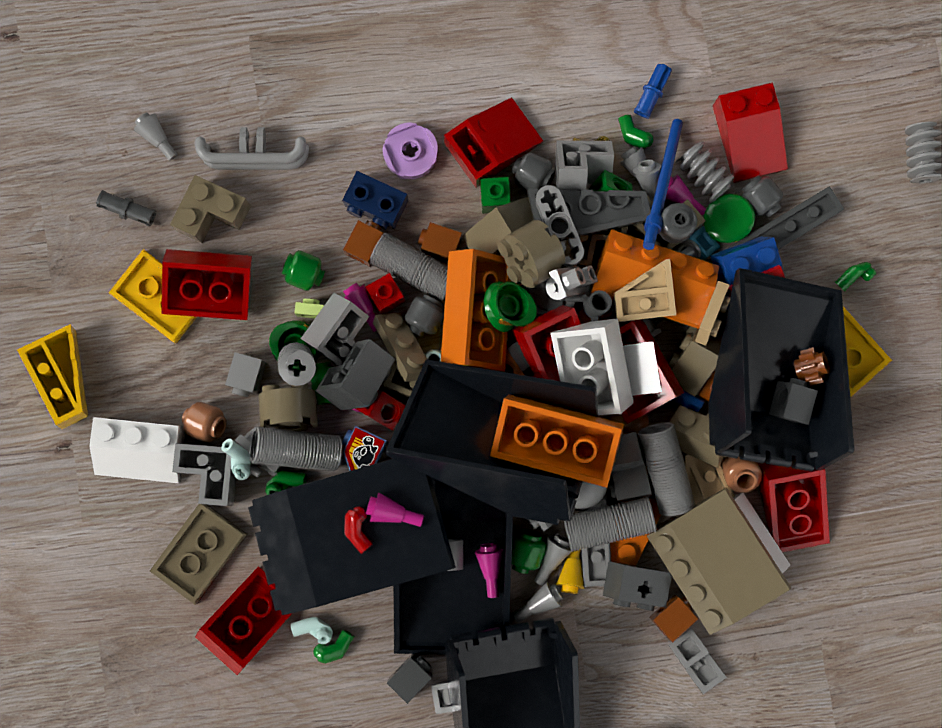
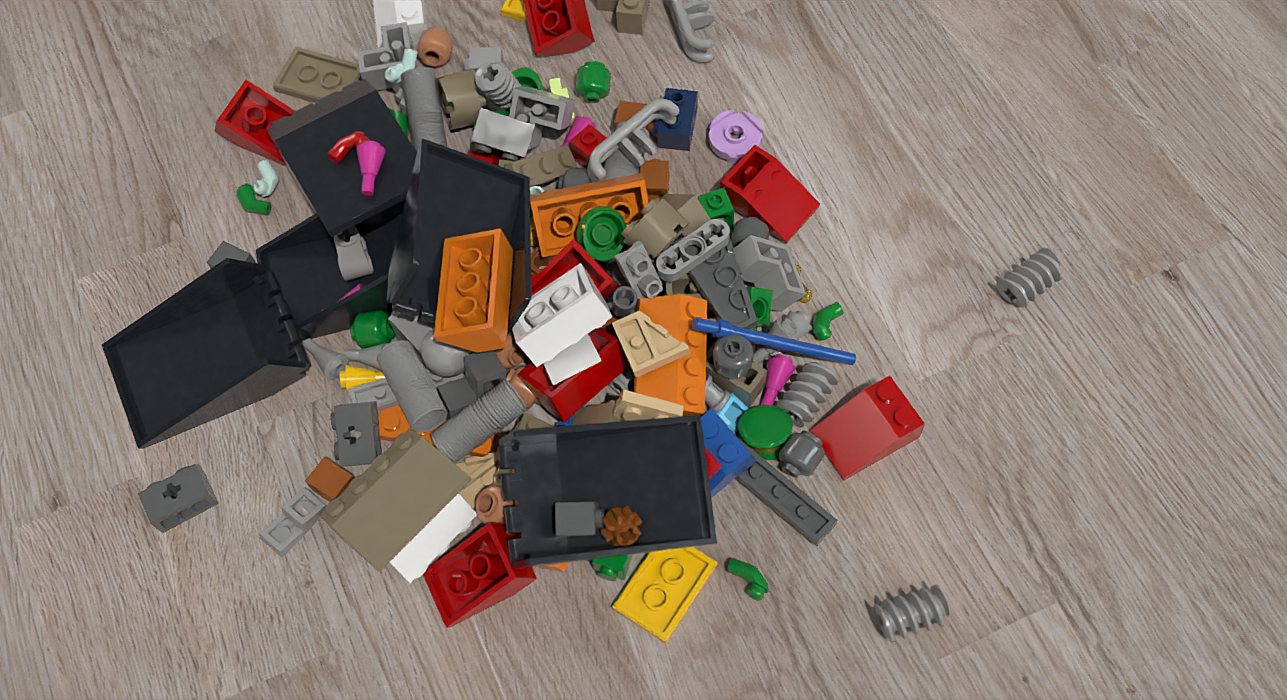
camera: 80 degrees right, 20 degrees down
(400, 254) = (631, 129): none -> light grey piece
(653, 91) = (875, 324): blue axle -> none

